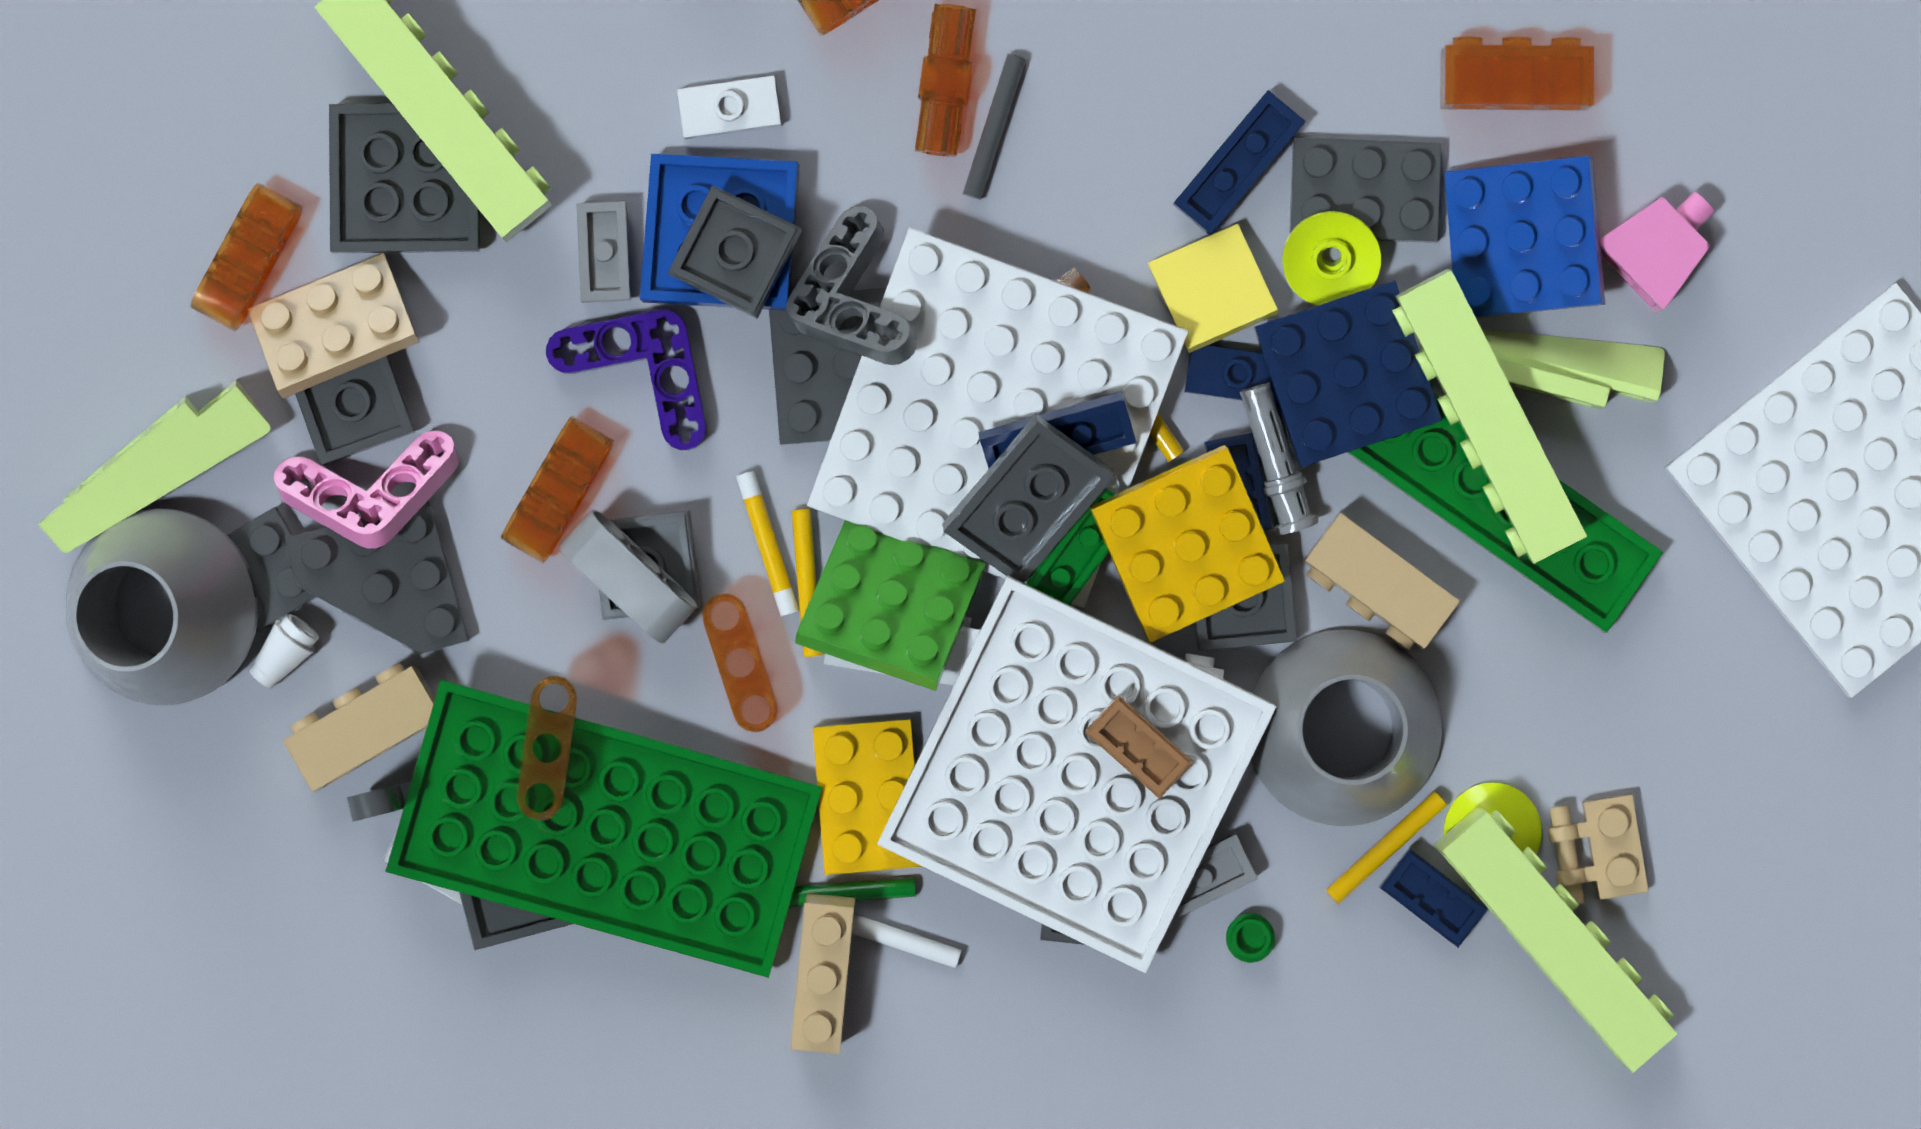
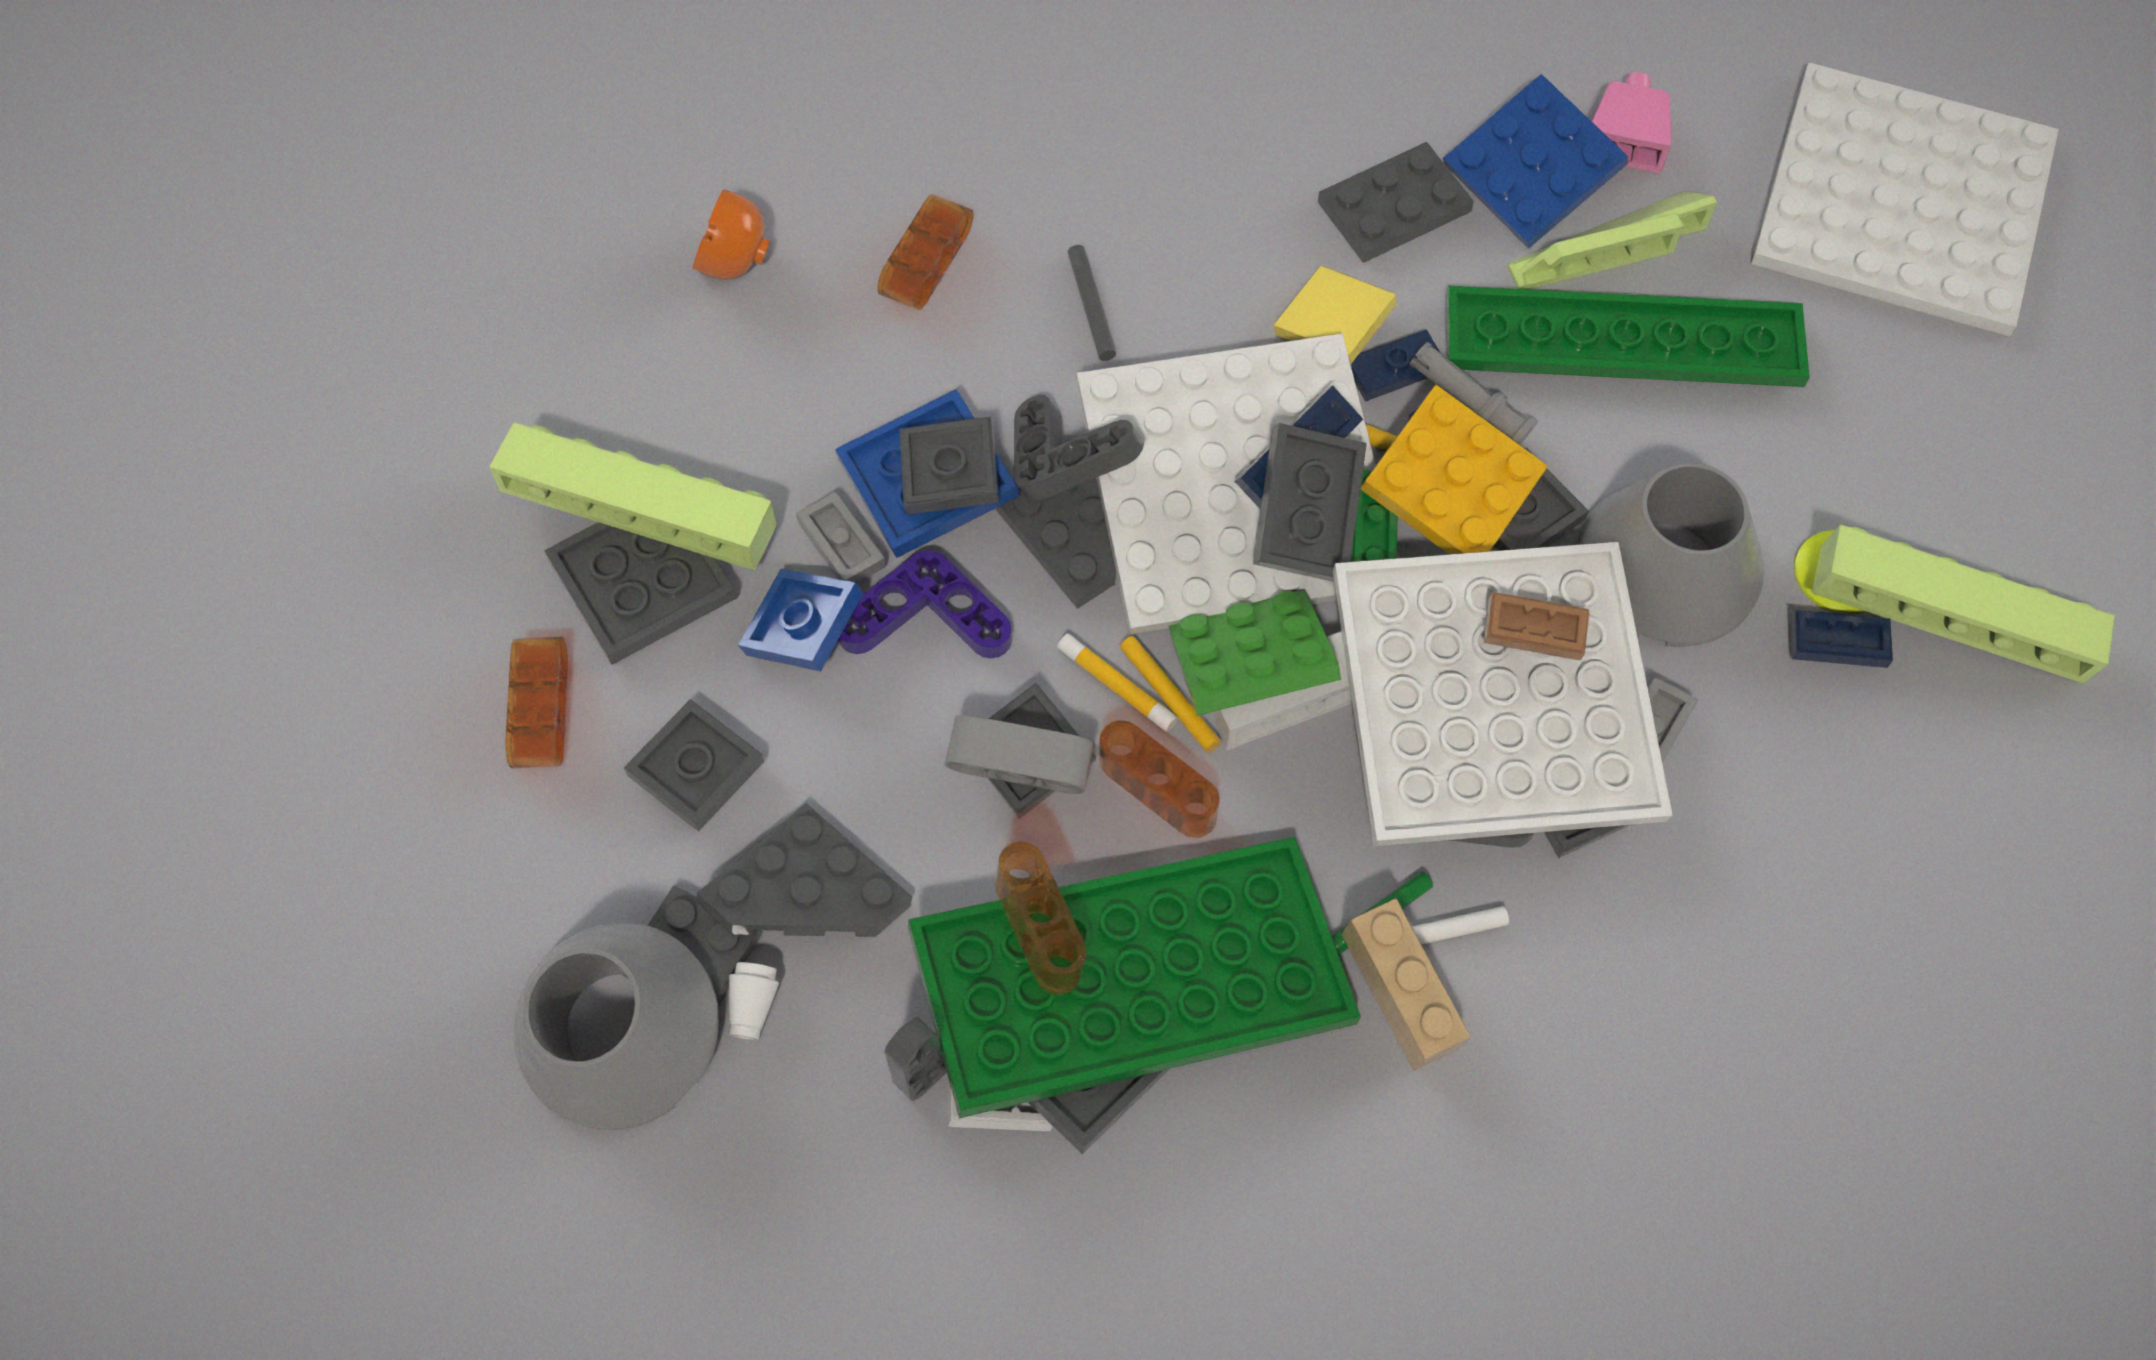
camera: 30 degrees left, 25 degrees down
(155, 463) = (543, 903): yellowish green wedge -> none
(333, 325) = (643, 711): tan plate -> none
(361, 726) = (860, 1021): tan brick -> none
(377, 500) = (751, 835): bright pink beam -> none
(518, 318) = (800, 619): none -> blue plate
(557, 489) = (914, 734): clear orange beam -> none
(729, 107) = (876, 393): white plate -> none
(861, 781) = (1330, 819): yellow plate -> none
(945, 80) = (1033, 287): clear orange piece -> none
(1239, 162) = (1291, 228): dark blue plate -> none
(1250, 937) = (1726, 754): green plate -> none
(1326, 281) = (1418, 232): neon yellow dish -> none
(1346, 375) = (1480, 308): dark blue plate -> none
(1379, 583) = (1614, 436): tan brick -> none
(1386, 847) = (1773, 628): yellow bar -> none
(1490, 416) = (1611, 265): yellowish green brick -> none
(1517, 75) = (1447, 74): clear orange brick -> none
(1613, 848) = (1934, 524): tan plate -> none

